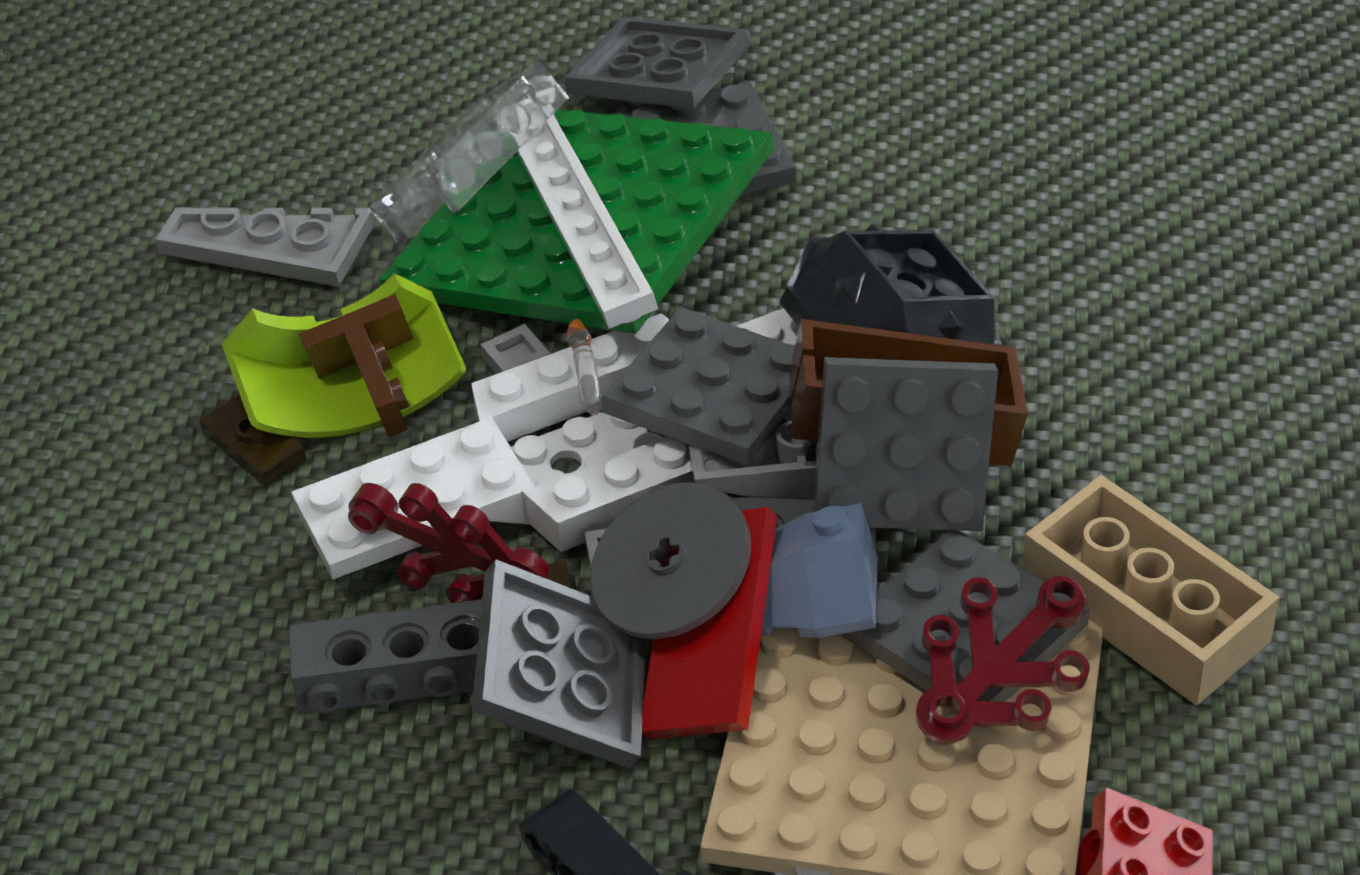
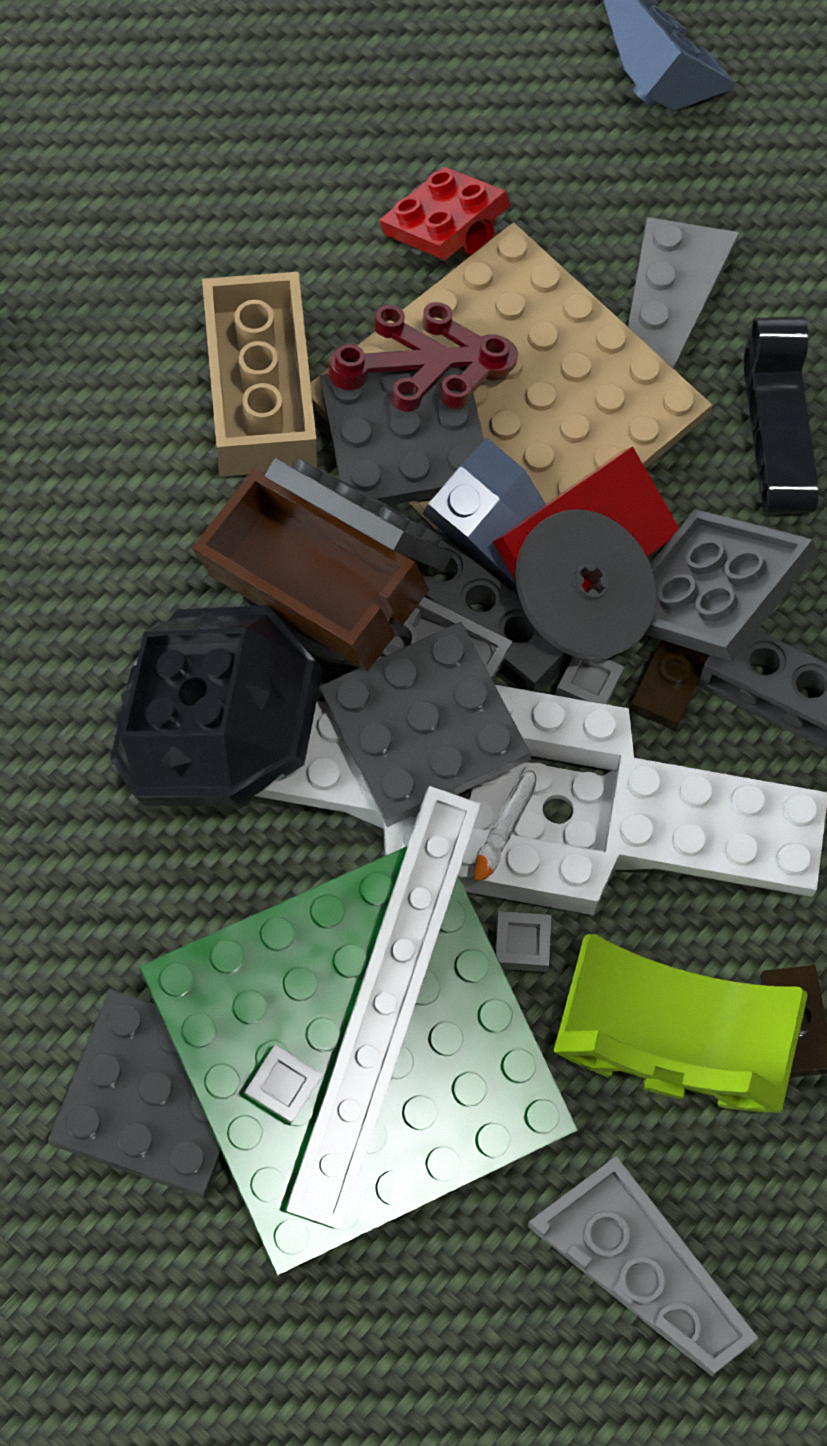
camera: 150 degrees left, 20 degrees up
(363, 340) = (654, 1023): reddish brown bracket -> none
(452, 539) = (728, 724): dark red plant -> none
(469, 151) = (421, 1224): clear window -> none
(605, 135) = (283, 1084): none -> plate
(657, 62) = (118, 1217): dark grey plate -> none

